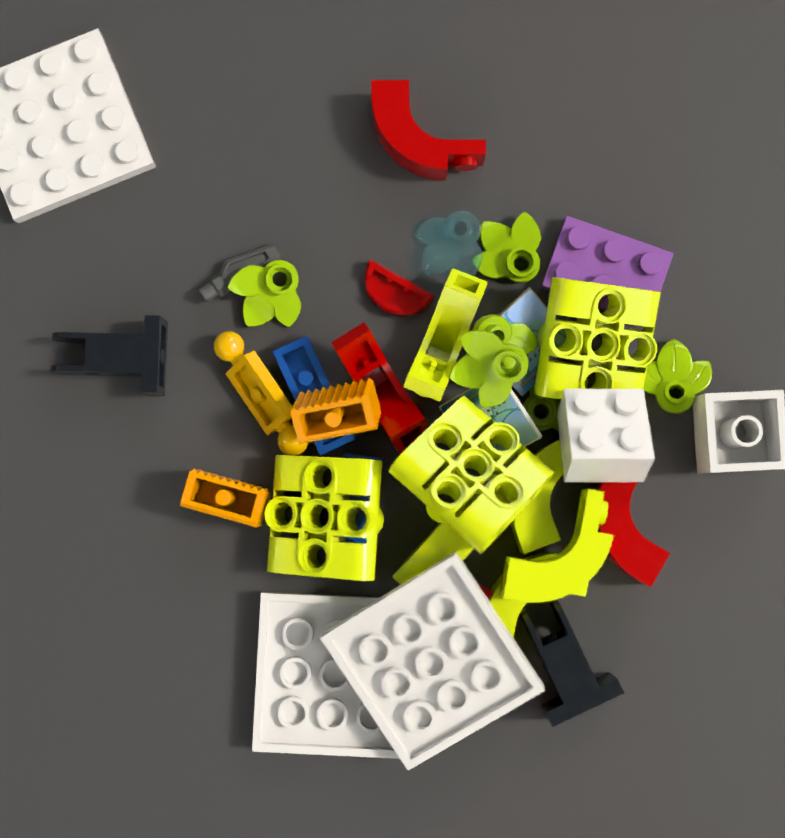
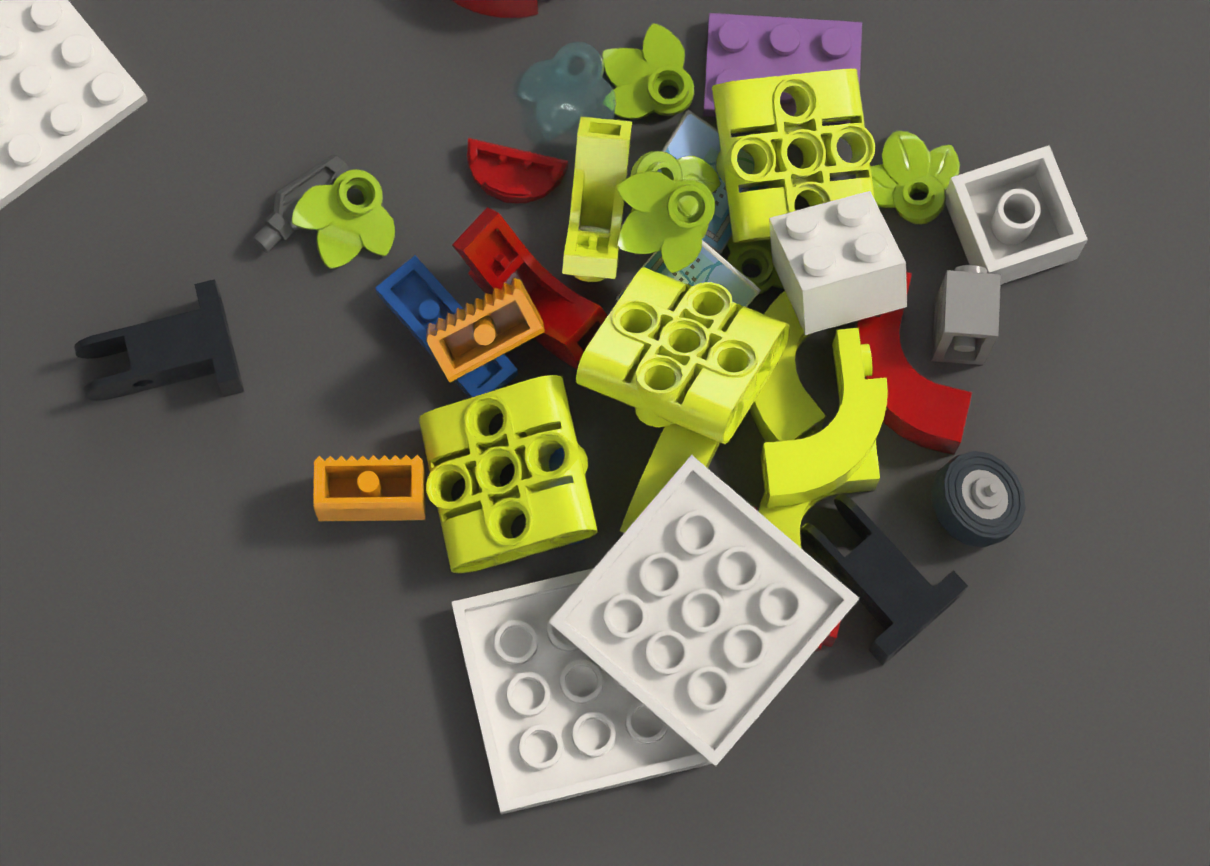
camera: 20 degrees left, 10 degrees down
(259, 391) = (373, 345): yellow plate -> none
(650, 627) = (978, 499): none -> black wheel
(684, 495) = (966, 315): none -> light grey brick

